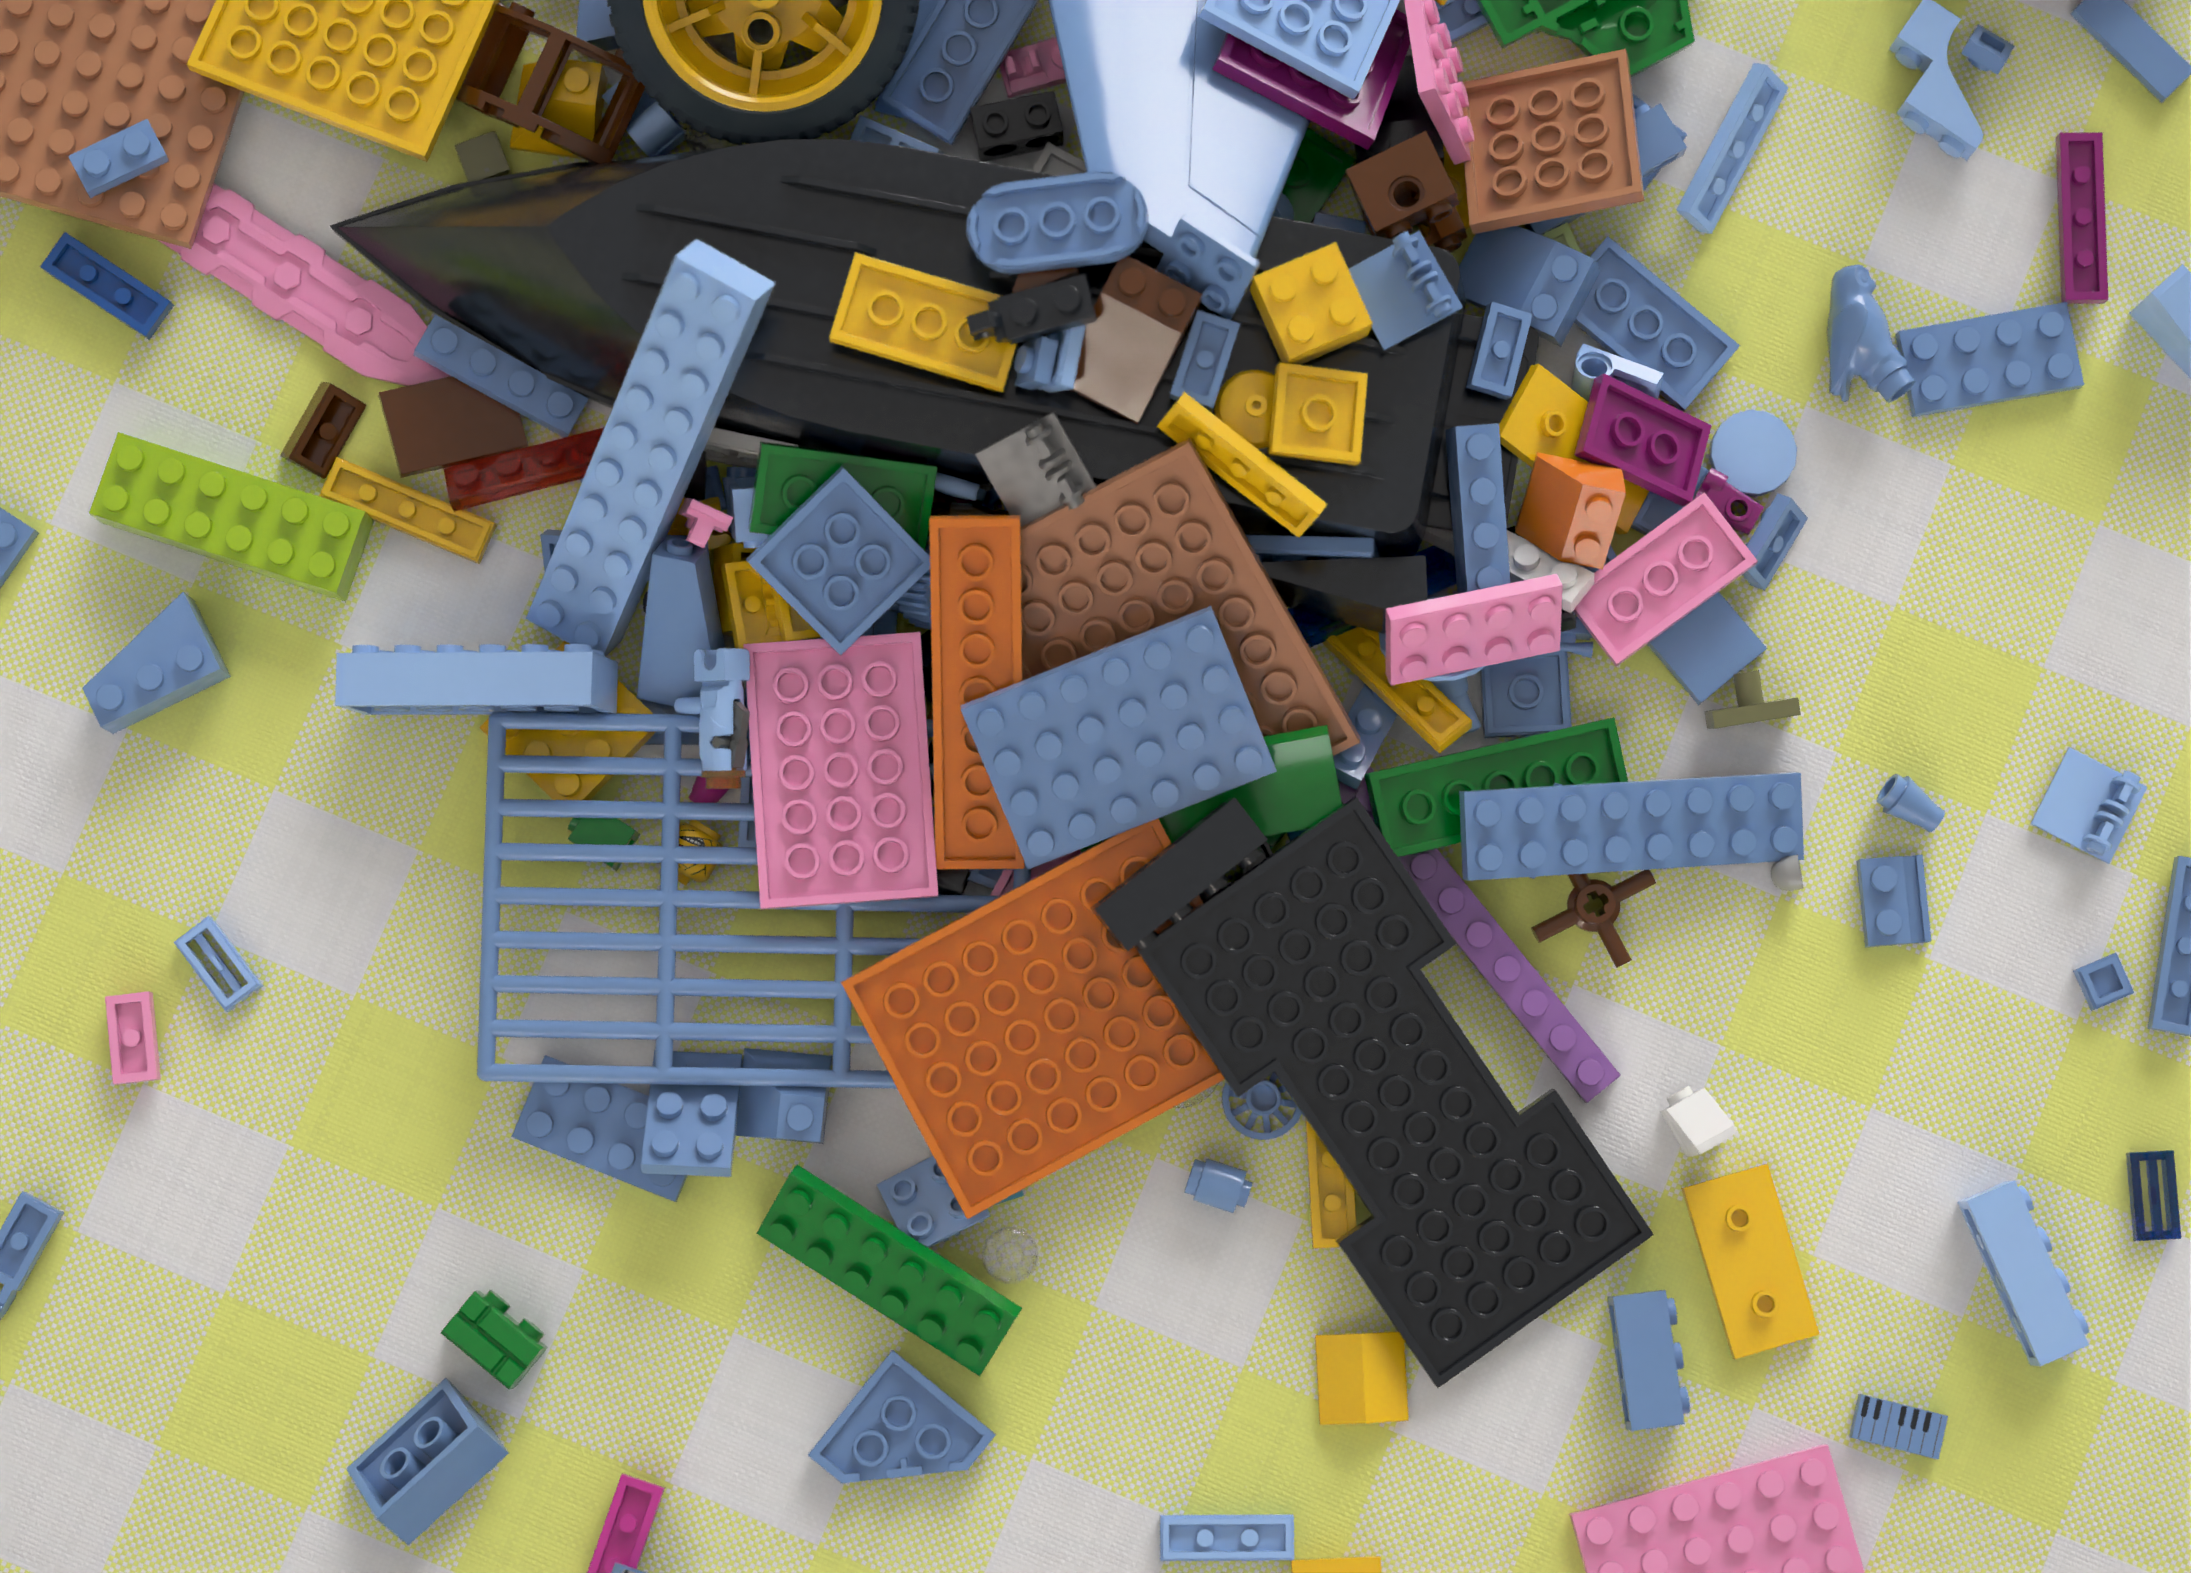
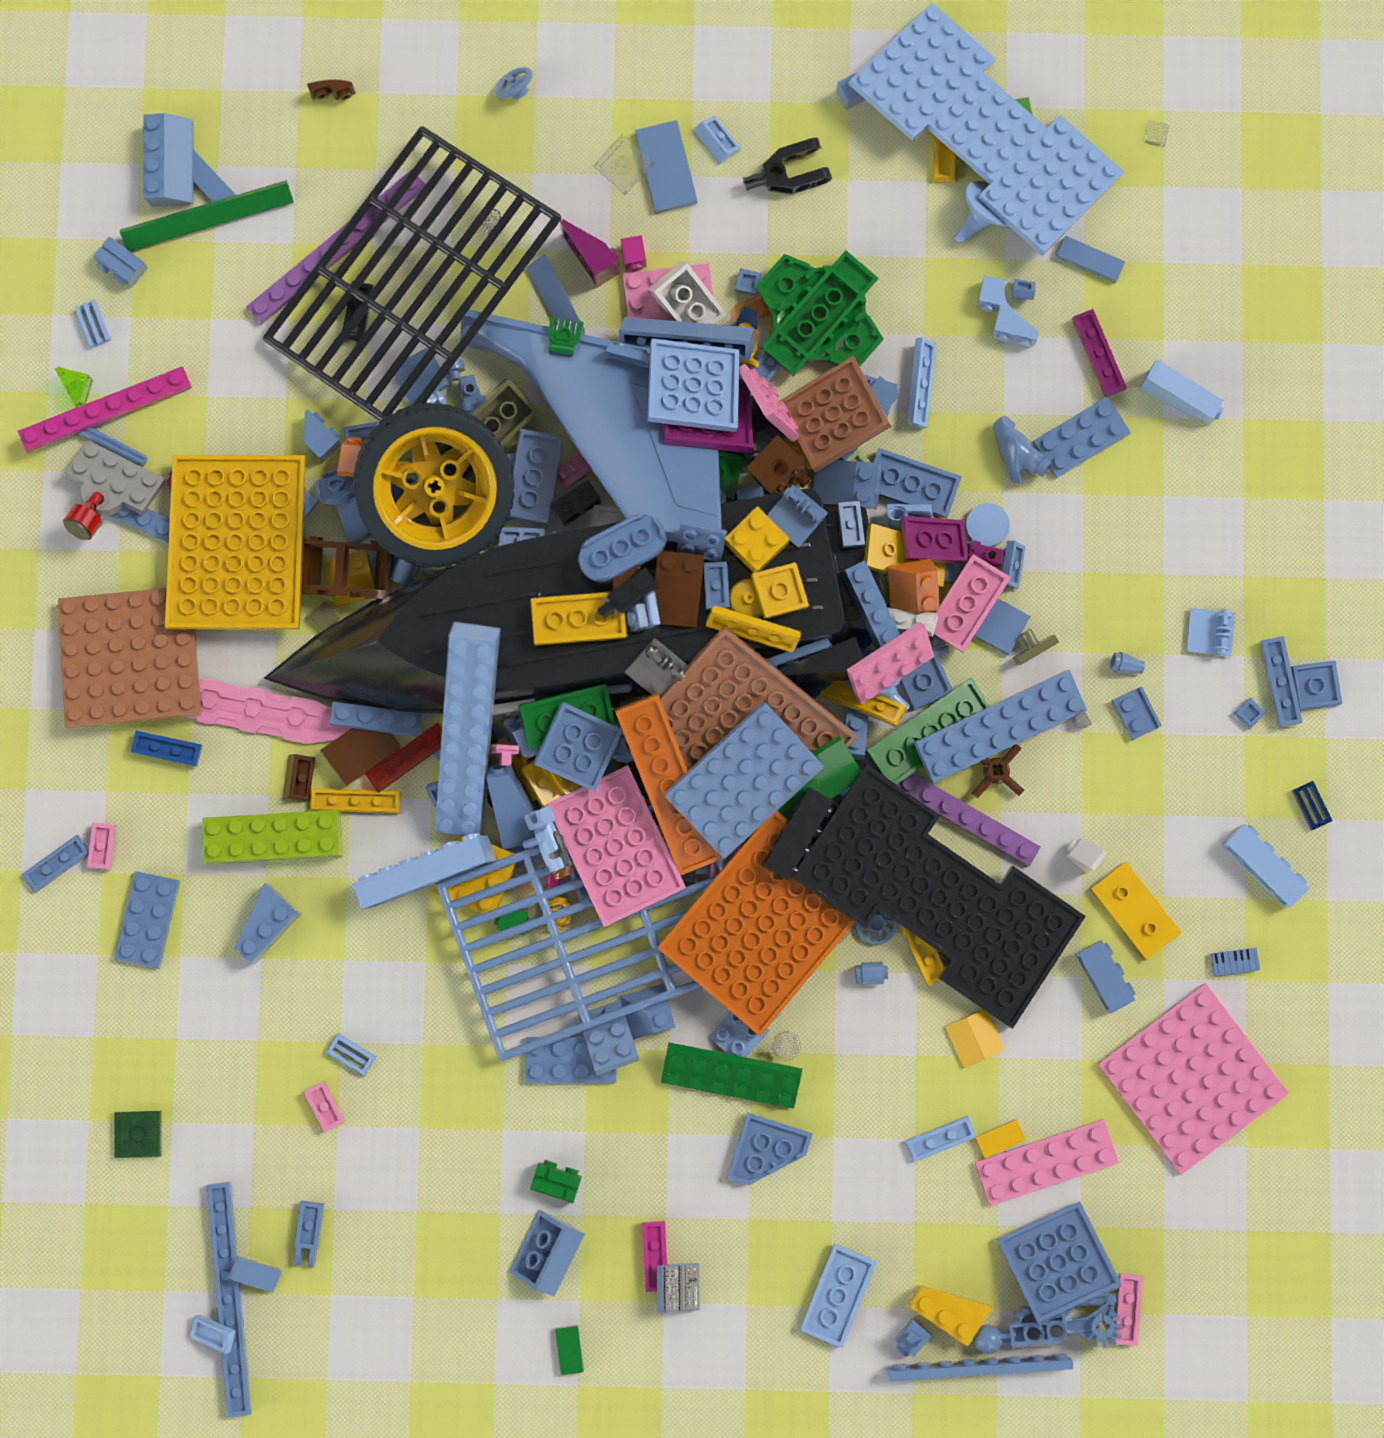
camera: 20 degrees left, 0 degrees up
(118, 158) = (150, 685): medium blue plate -> none

